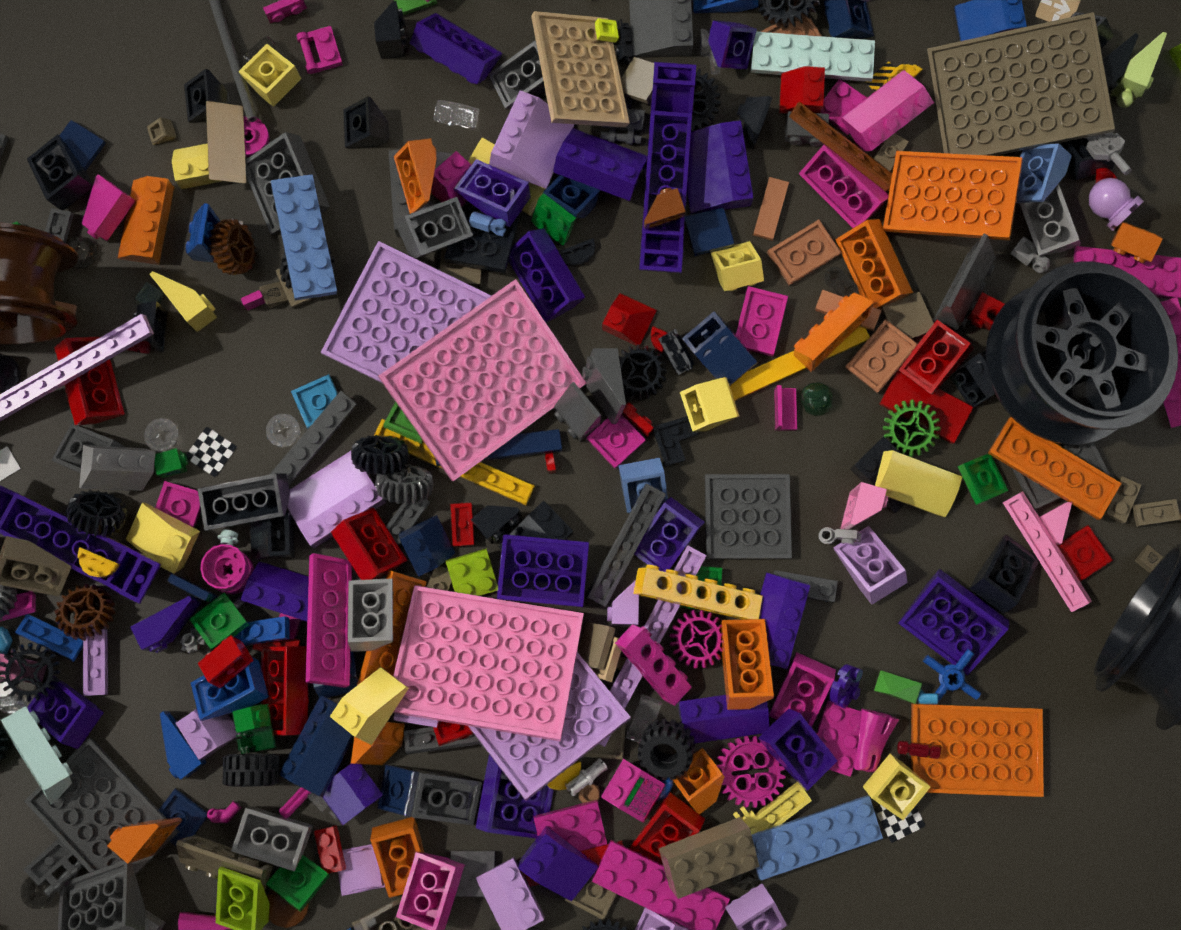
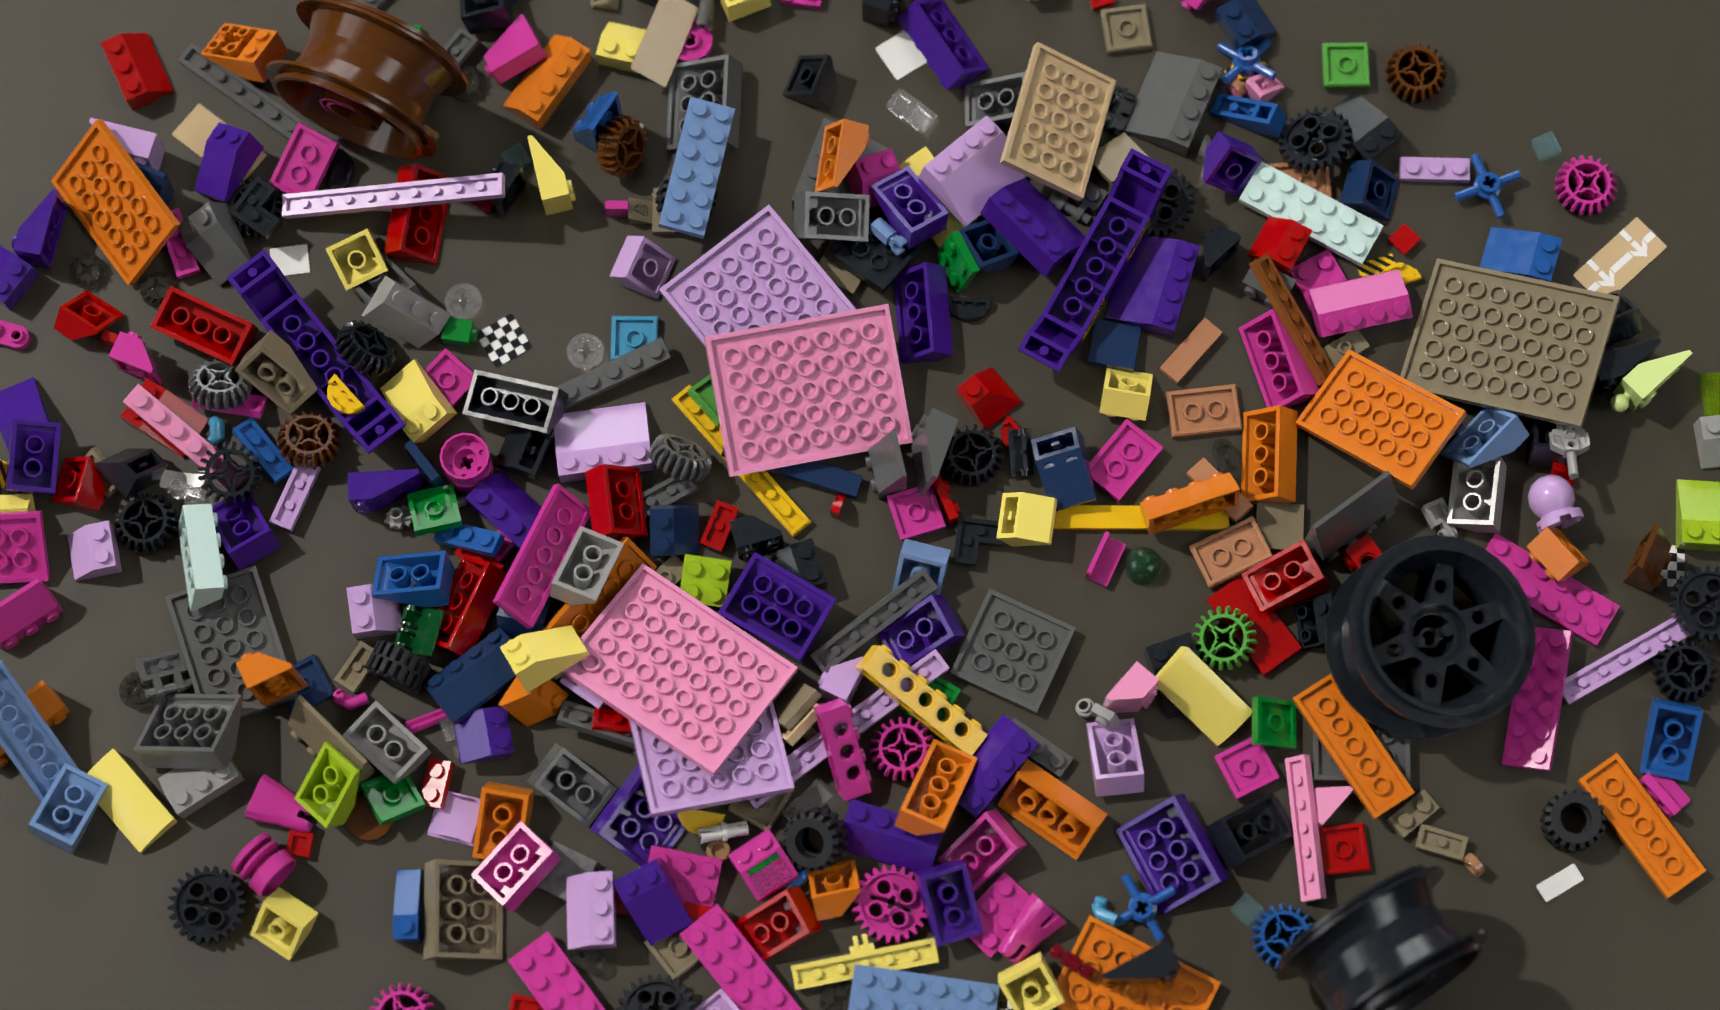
camera: 30 degrees right, 5 degrees down
(54, 440) = (357, 259): none -> light yellow slope
(178, 752) = (336, 620): blue slope -> none
(214, 791) = (354, 670): none -> dark tan plate
(225, 661) = (423, 549): red brick -> none
(228, 537) = (482, 431): light aqua plate -> none
(251, 718) = (422, 617): green brick -> none
(297, 338) = (642, 266): none -> lavender slope
(379, 454) = (670, 418): black gear -> none
(398, 790) = (531, 755): dark blue tile -> none
(425, 72) = (900, 55): none -> white sticker
(606, 30) = (1106, 93): neon yellow plate -> none
(666, 208) = (1074, 300): dark orange slope -> none
(709, 857) = (806, 961): dark tan brick -> none
(842, 631) = (1052, 809): none -> orange slope
(846, 687) = (1028, 863): dark purple plate -> none
(893, 45) = (1404, 239): none -> red tile
(898, 687) = (1082, 892): bright green slope -> none
(977, 525) = (1245, 768): none -> dark pink plate
(985, 726) = (1147, 968): none -> black slope
(1031, 638) = (1246, 909): none -> clear light blue tile
(1060, 658) = (1279, 925): none -> blue gear

